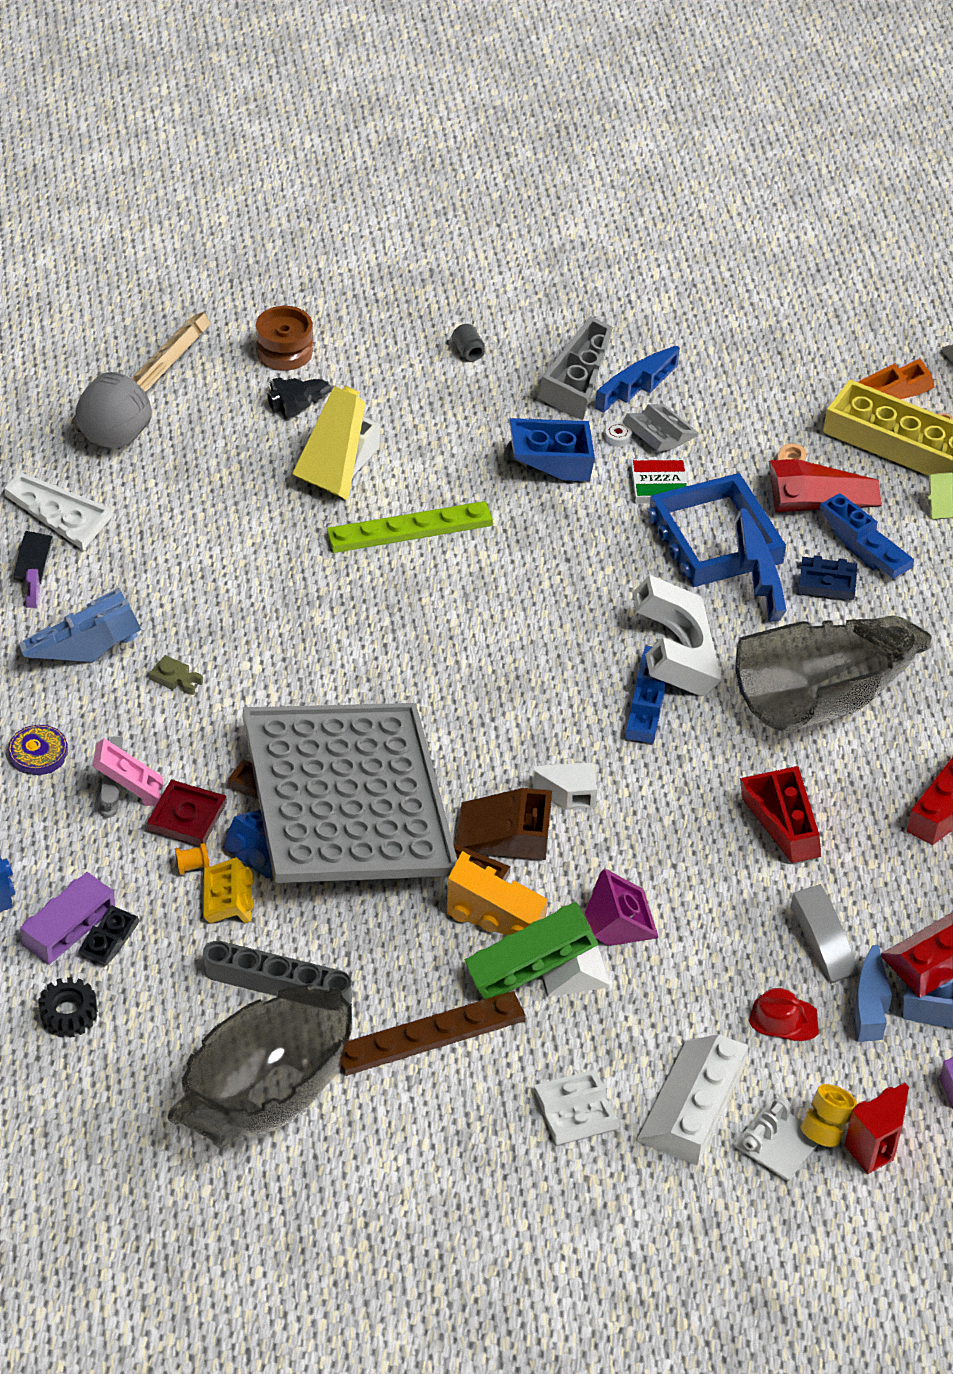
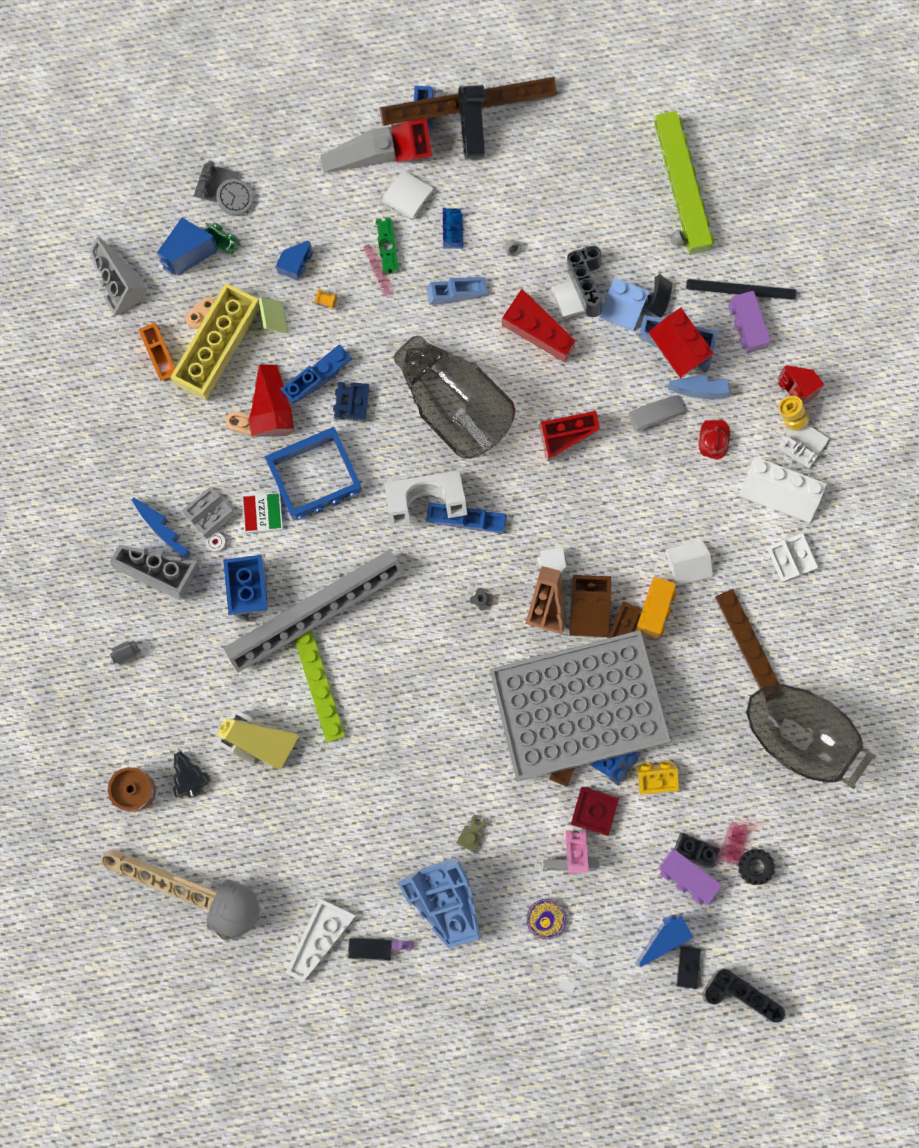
camera: 90 degrees left, 30 degrees up
(111, 977) = (733, 843): none -> clear pink hinge
(191, 858) = (633, 803): light orange bush -> none
(268, 971) = (726, 731): dark grey beam -> none
(512, 757) = (547, 604): none -> nougat wedge
(516, 520) = (313, 611): none -> light grey brick
(523, 709) = (481, 594): none -> dark grey plate
(531, 951) = (699, 584): bright green brick -> none
(619, 911) = (652, 533): magenta slope -> none
(757, 558) = (353, 445): blue slope -> none

